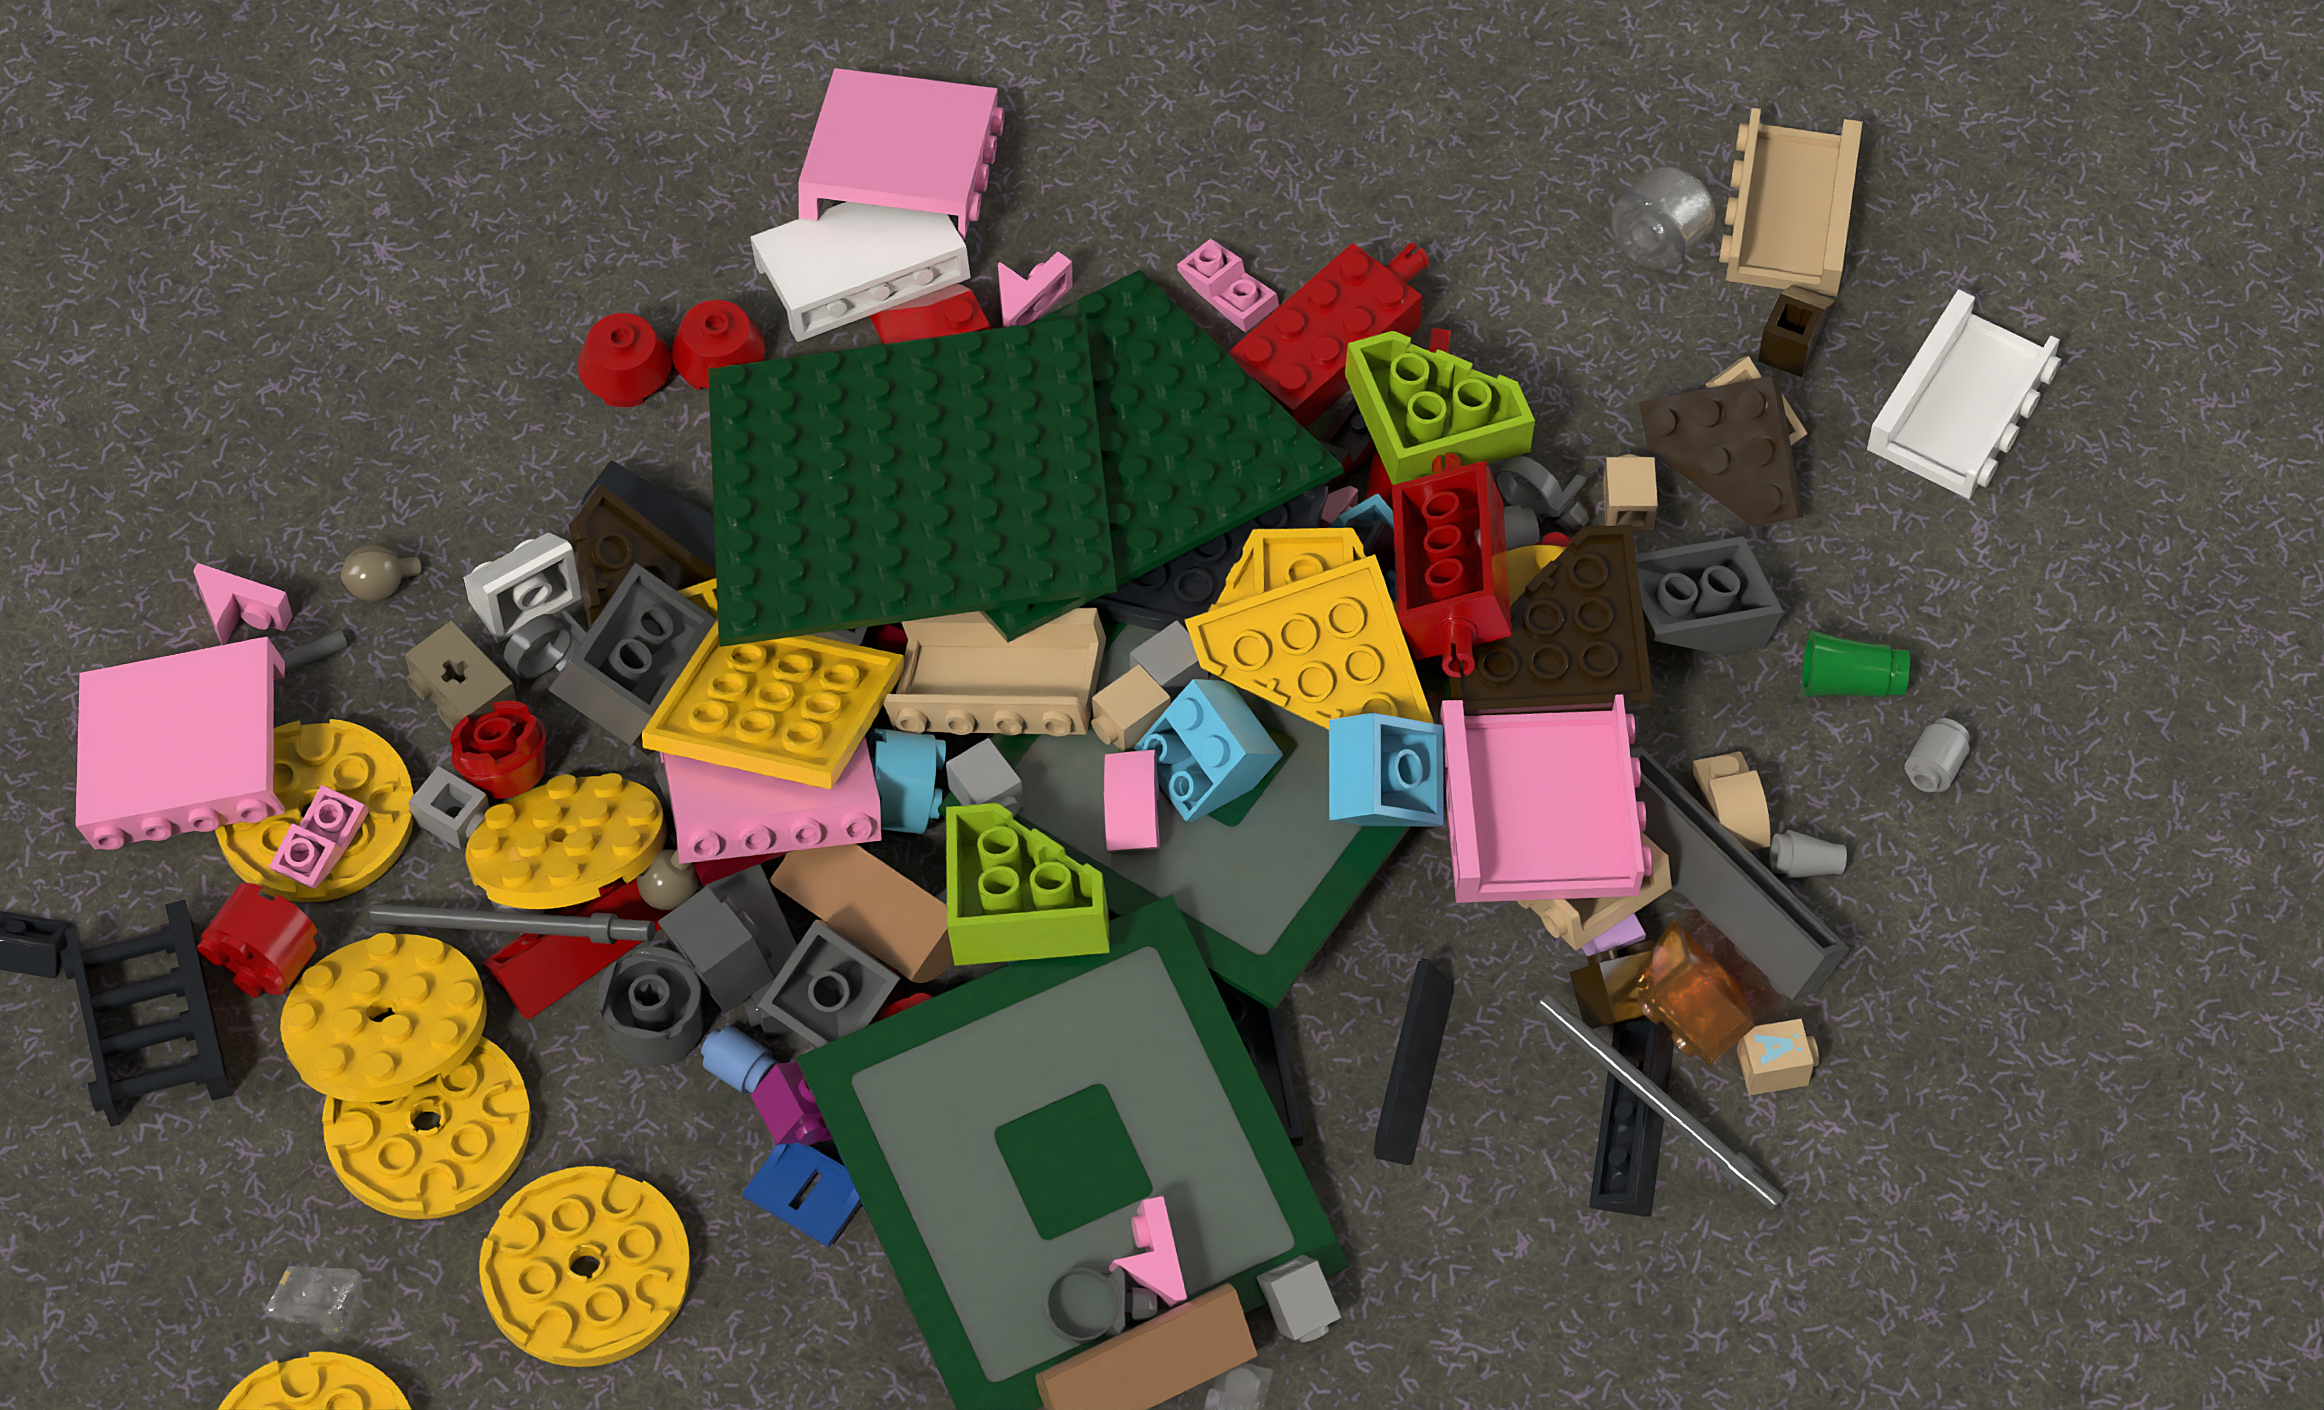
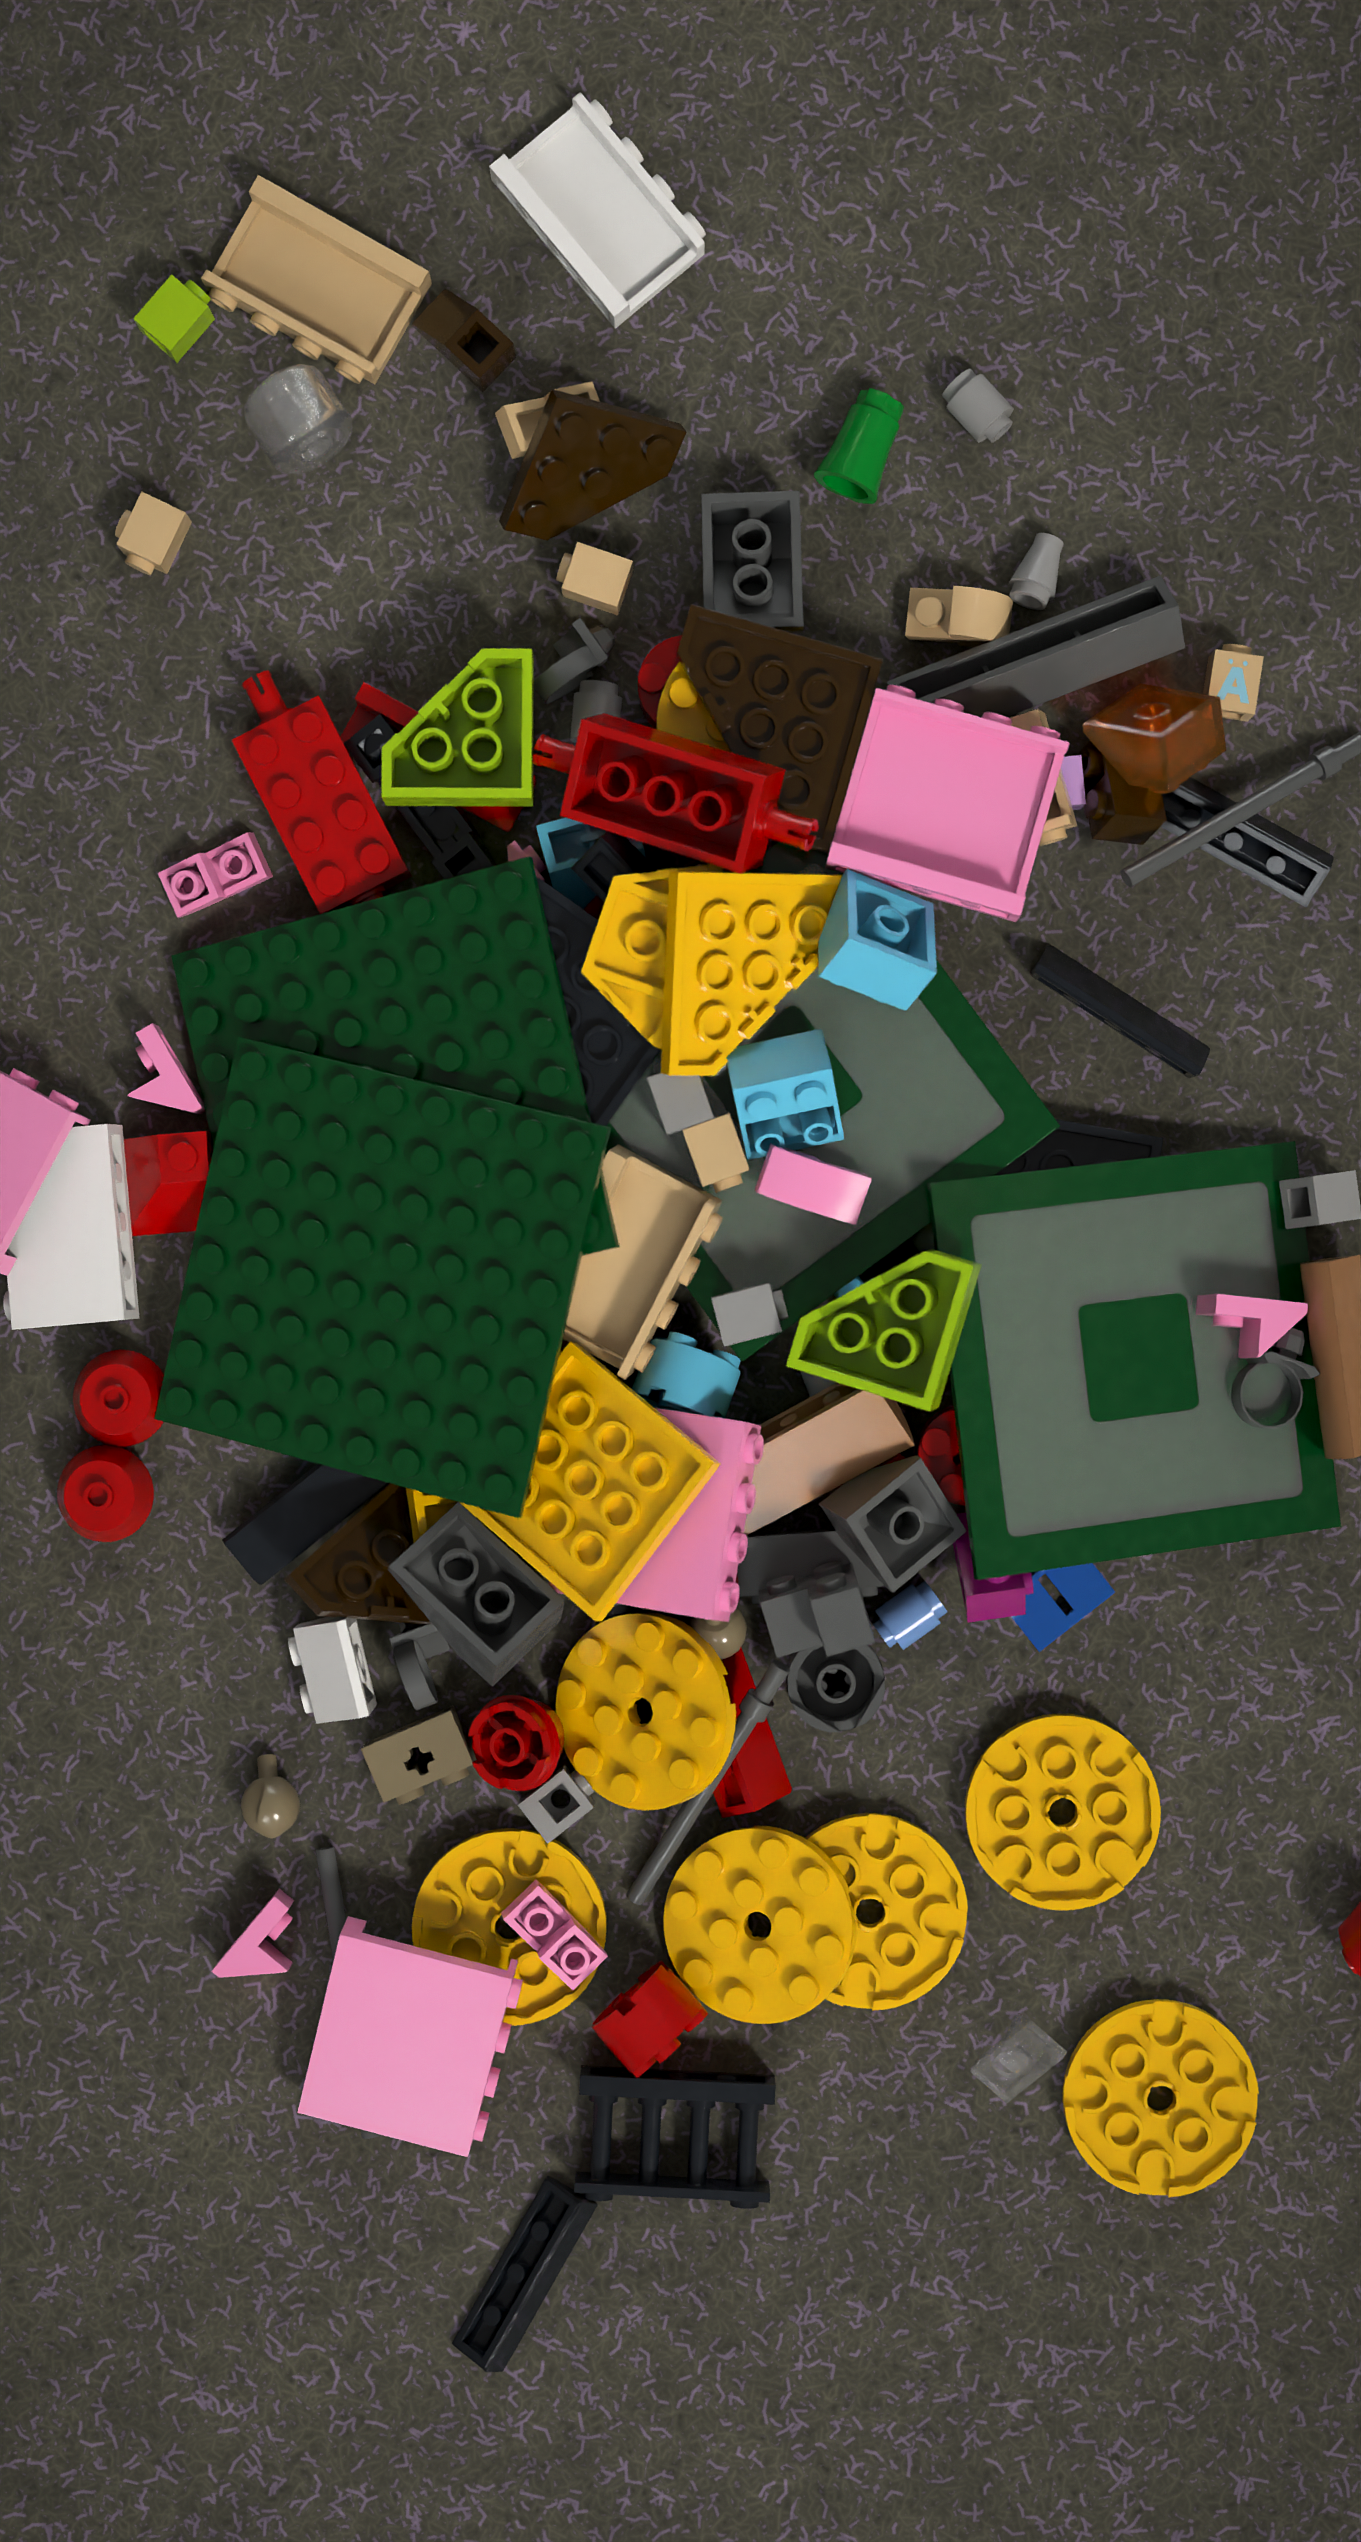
camera: 65 degrees left, 30 degrees up
(1510, 146) = (151, 534): none -> tan brick
(1709, 103) = (175, 317): none -> lime brick

